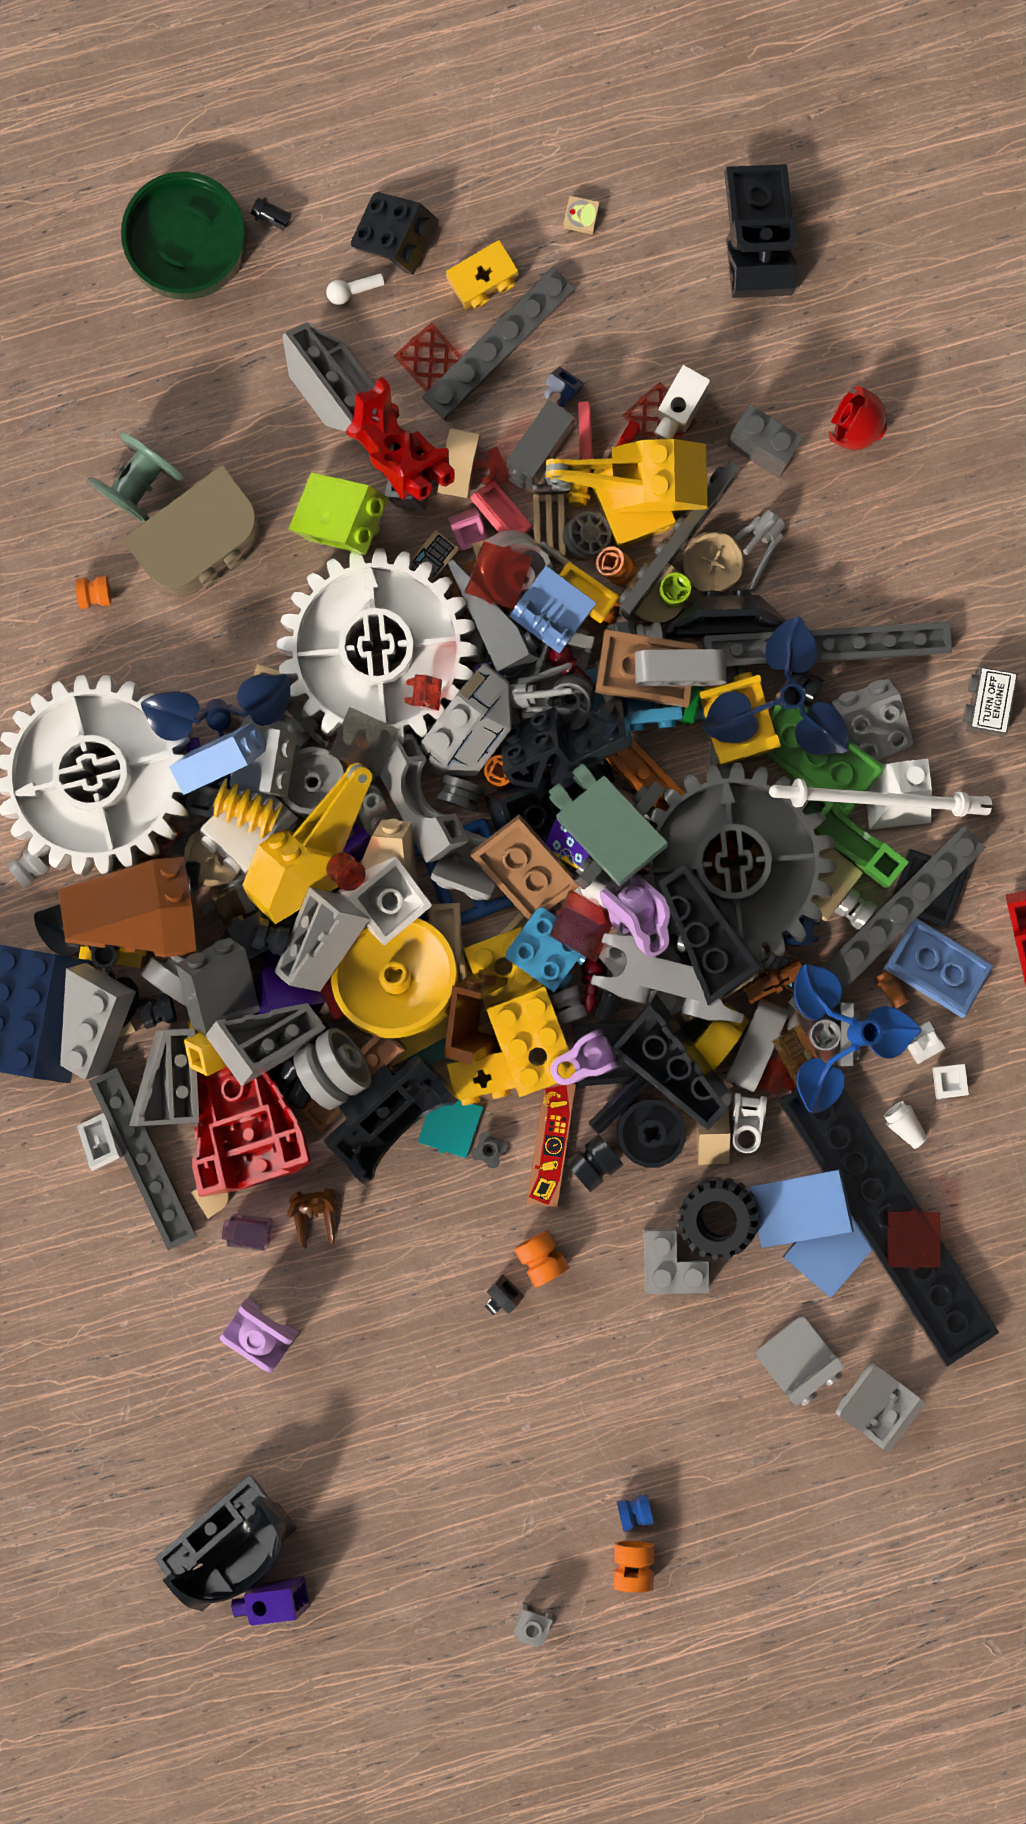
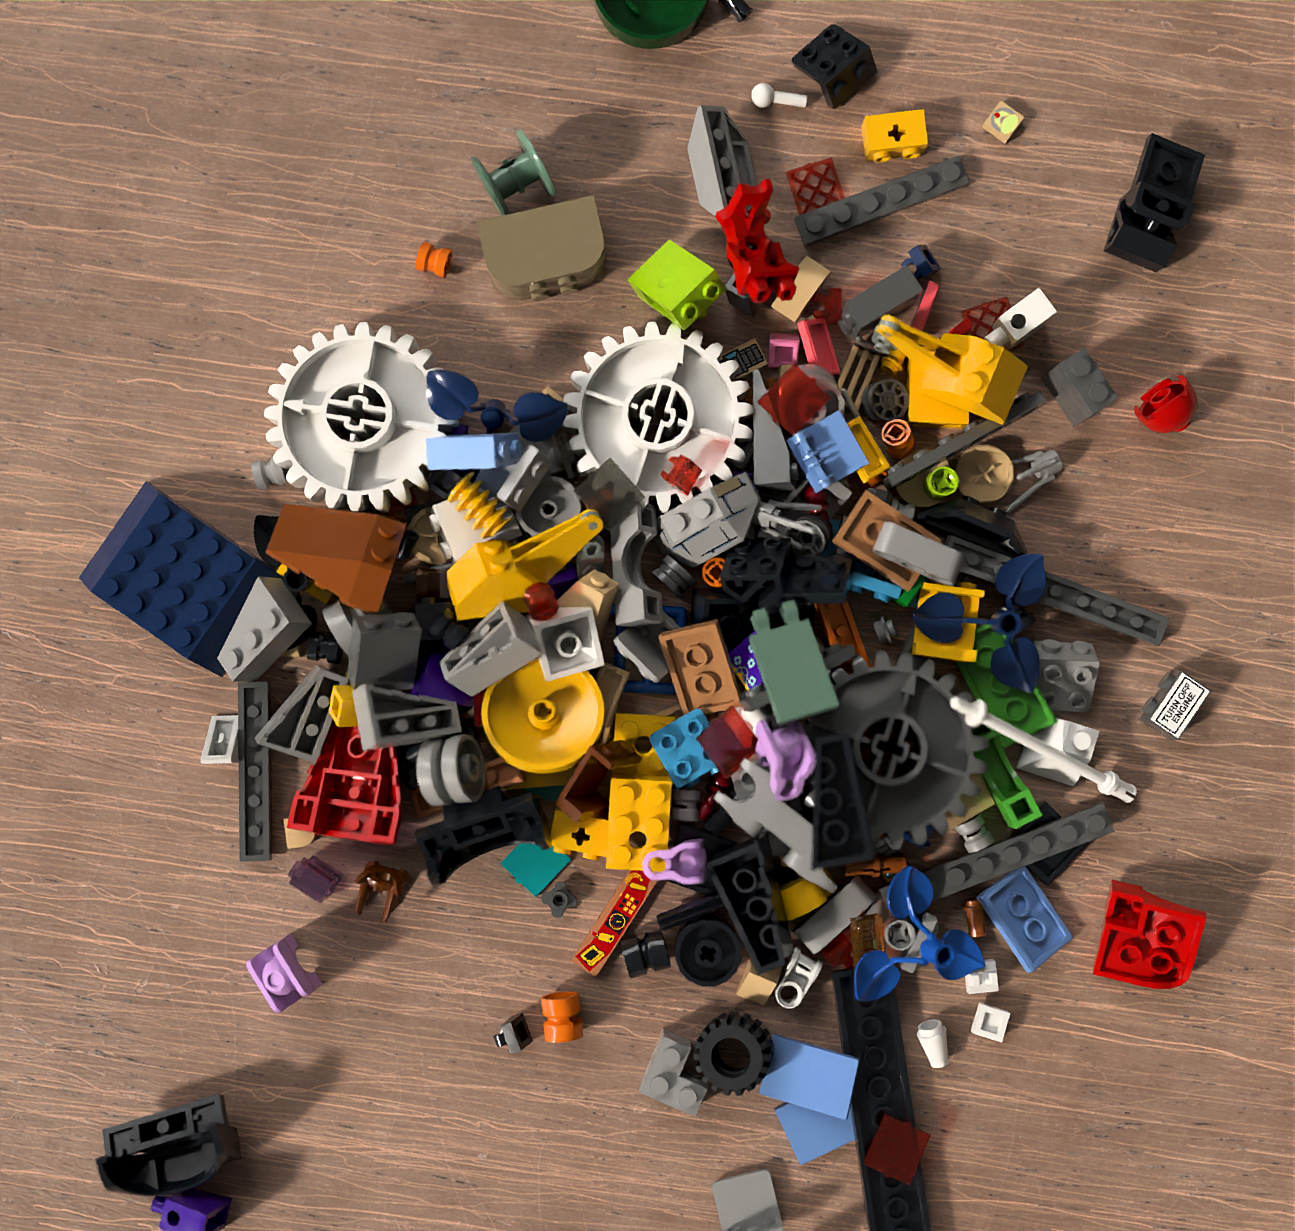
camera: 25 degrees right, 0 degrees up
(685, 754) = (885, 630): none -> light grey plate

